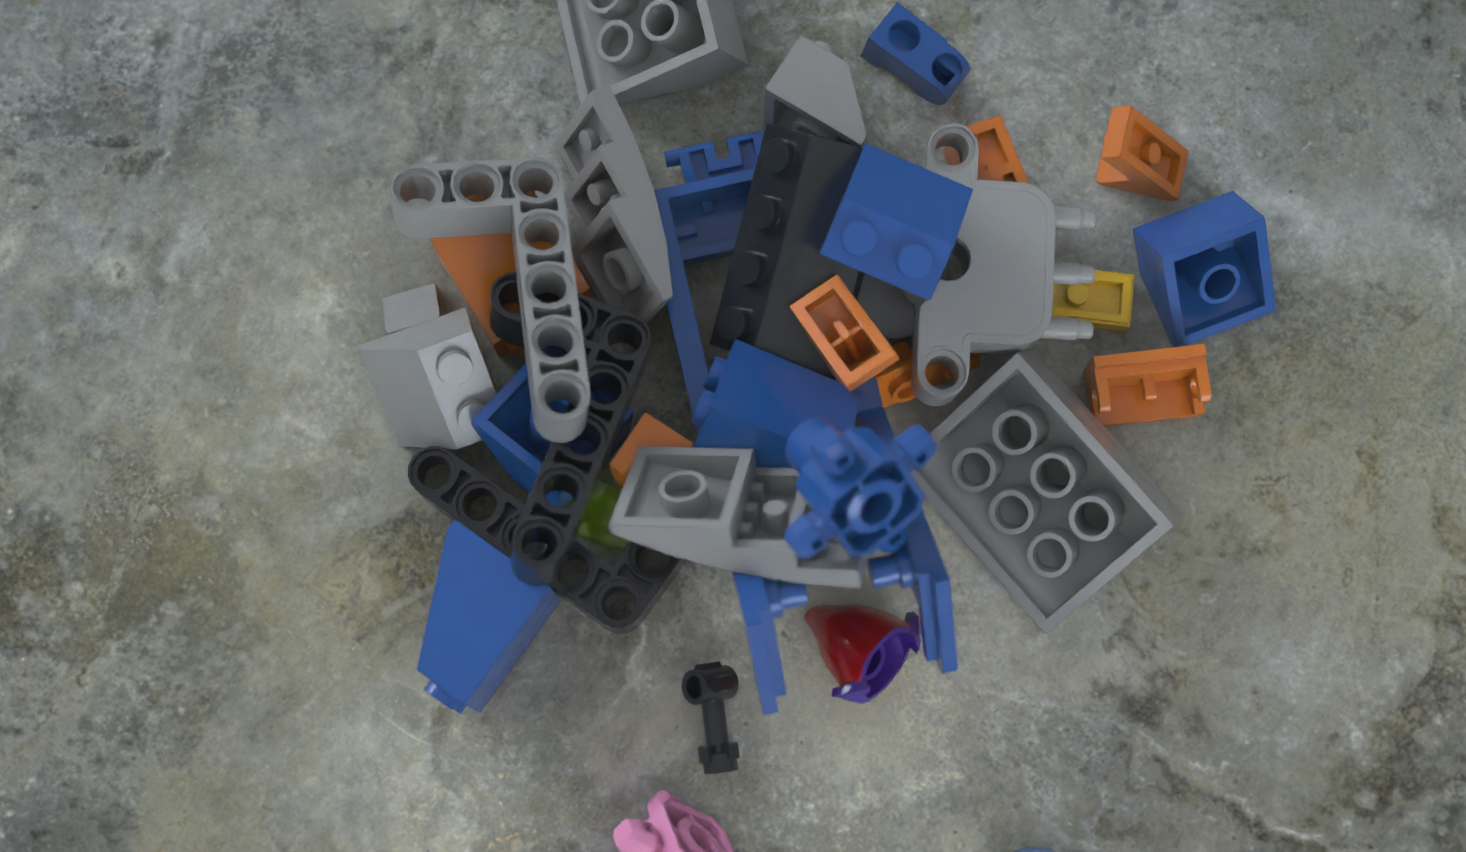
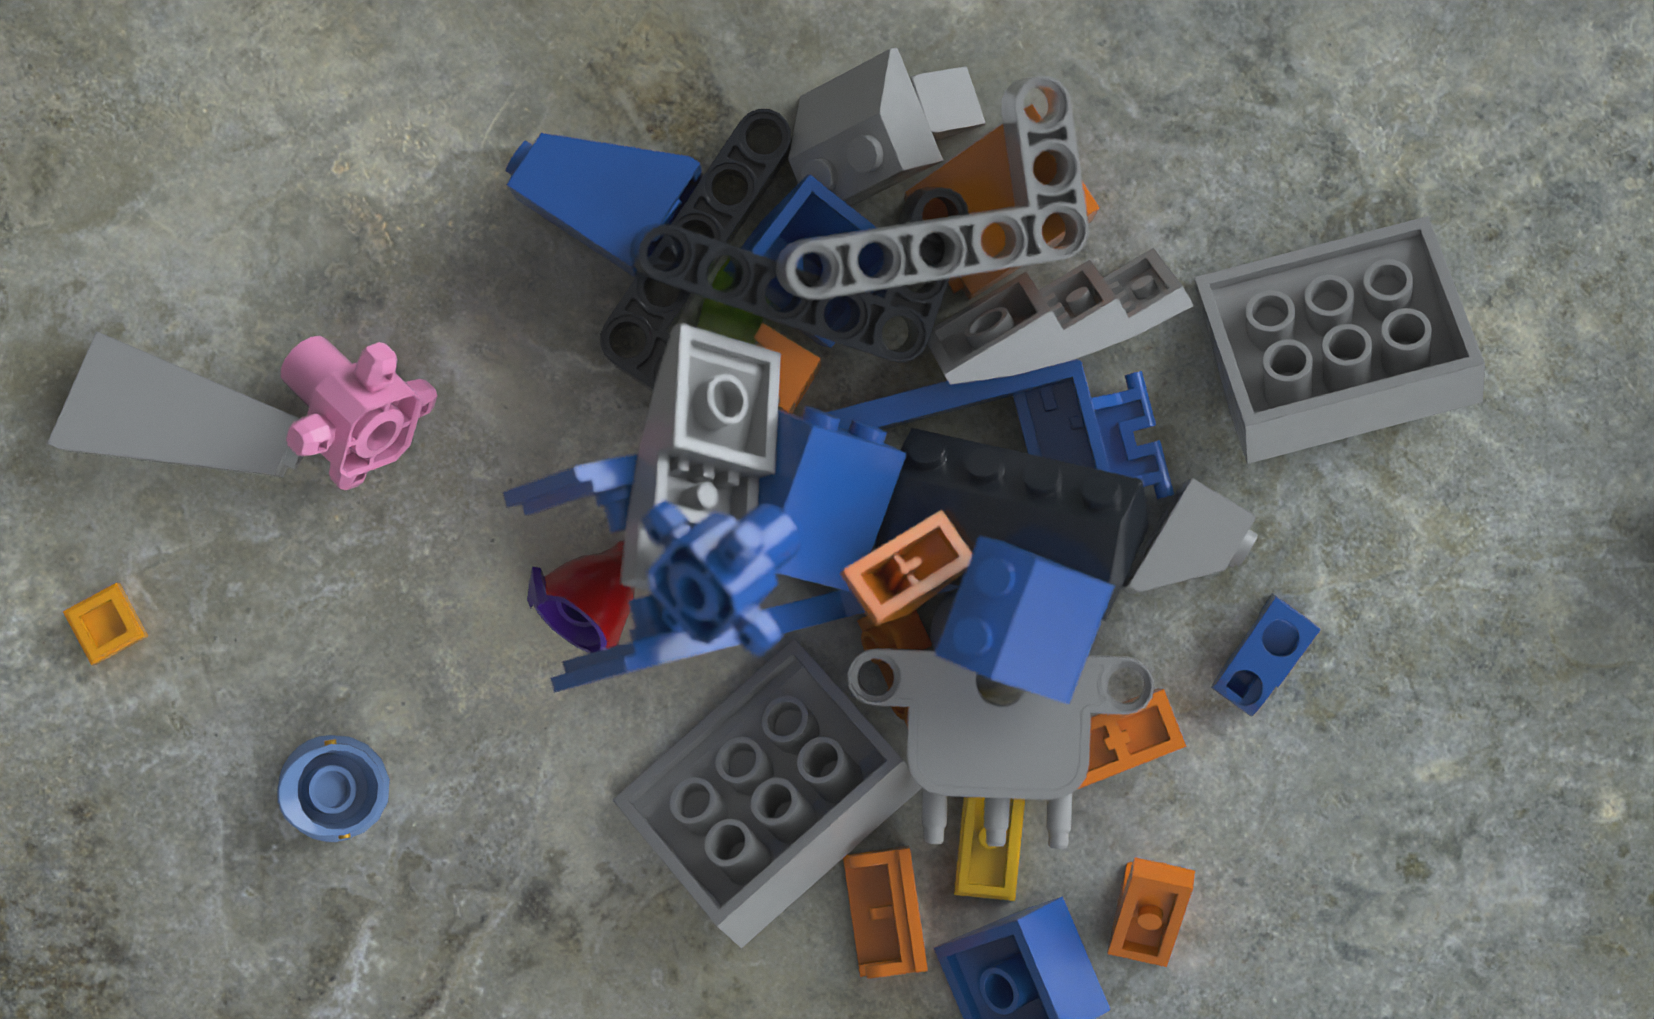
camera: 85 degrees right, 10 degrees up
(710, 686) = (543, 438): black bar -> none

